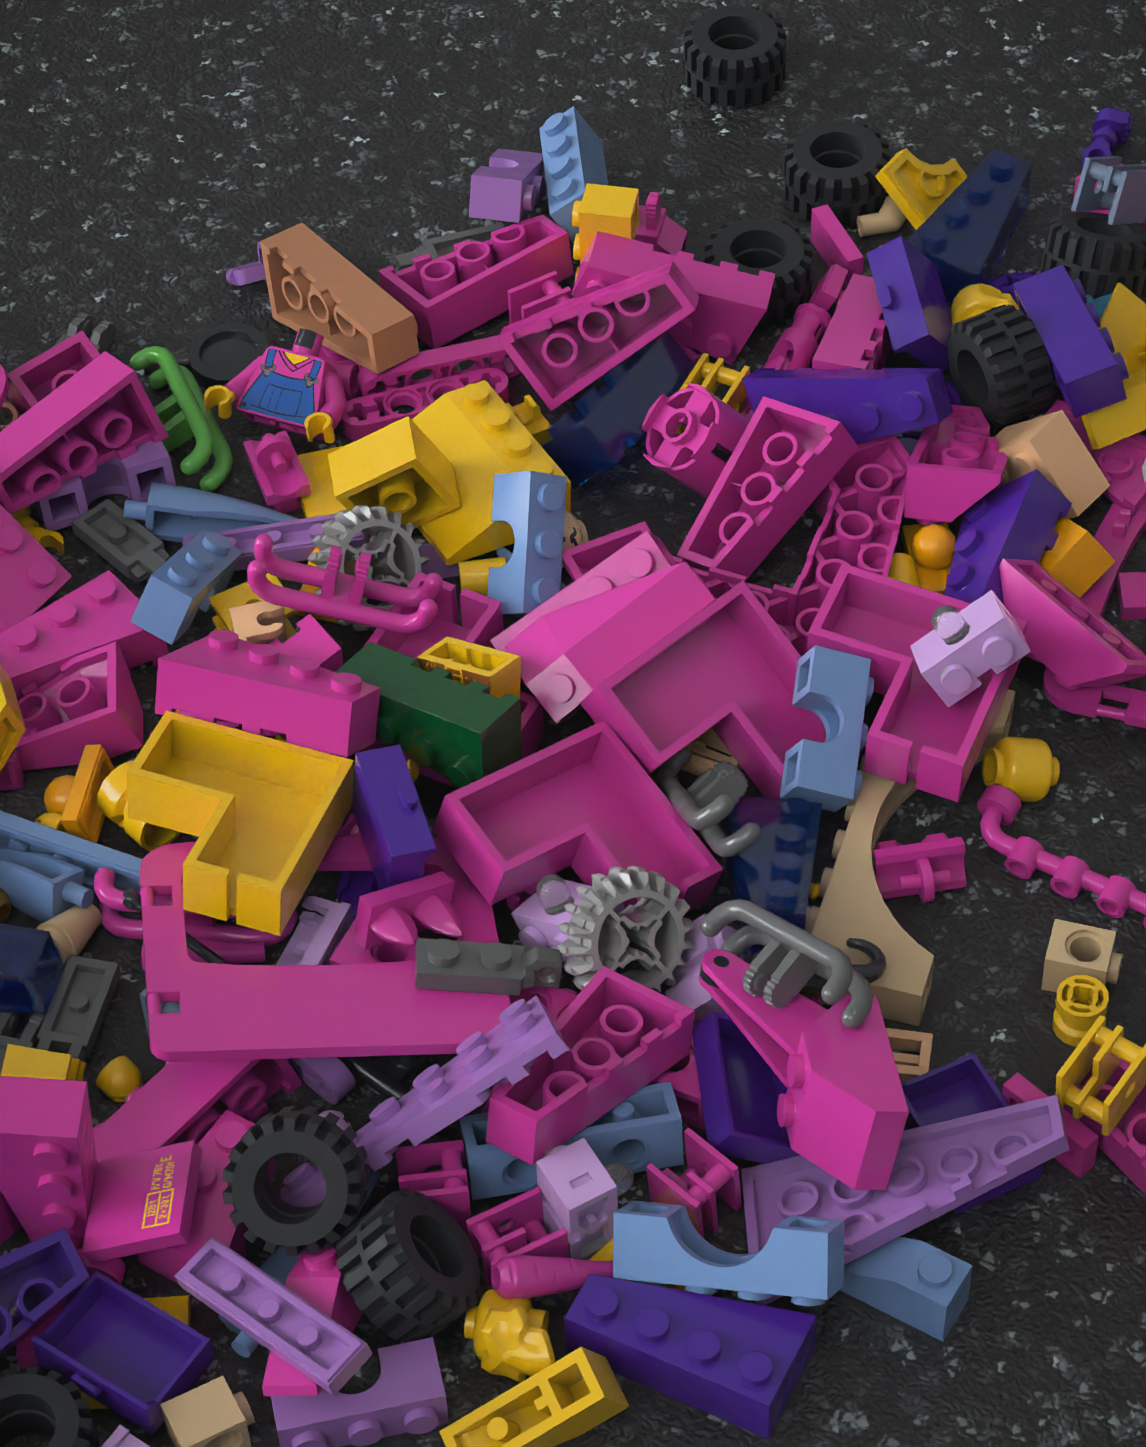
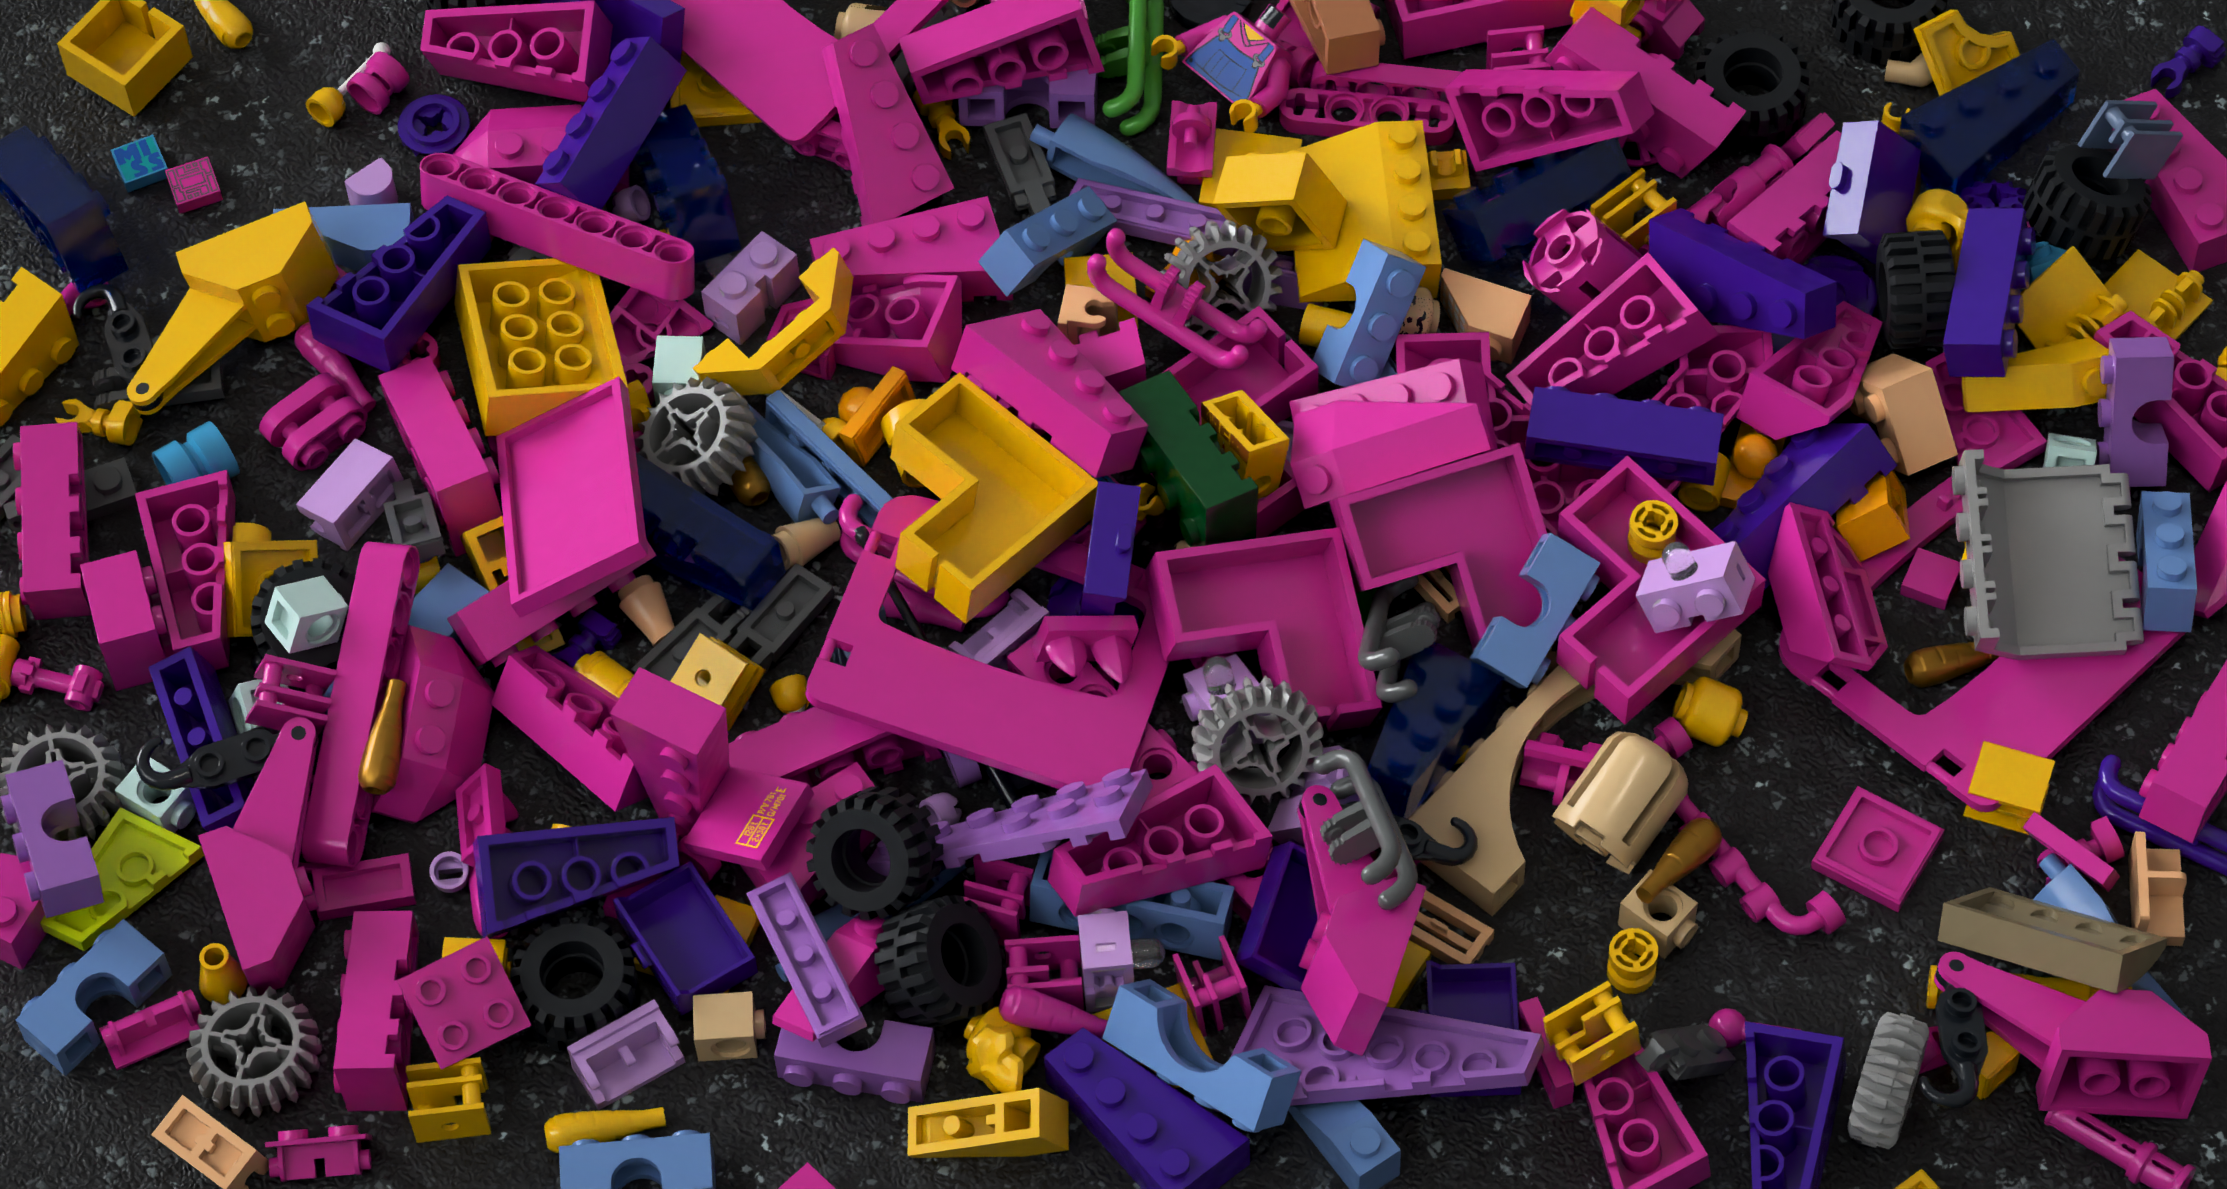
camera: 25 degrees right, 10 degrees up
(484, 966) = (1124, 720): dark grey hinge -> none
(618, 508) = (1486, 307): none -> light nougat slope
(805, 558) = (1603, 430): none -> dark purple brick
(834, 242) = (1844, 83): dark pink tile -> none
(896, 621) = (1644, 539): none -> yellow wheel
(995, 866) = (1623, 799): none -> tan cylinder
(1080, 893) = (1686, 853): none -> pearl gold piece

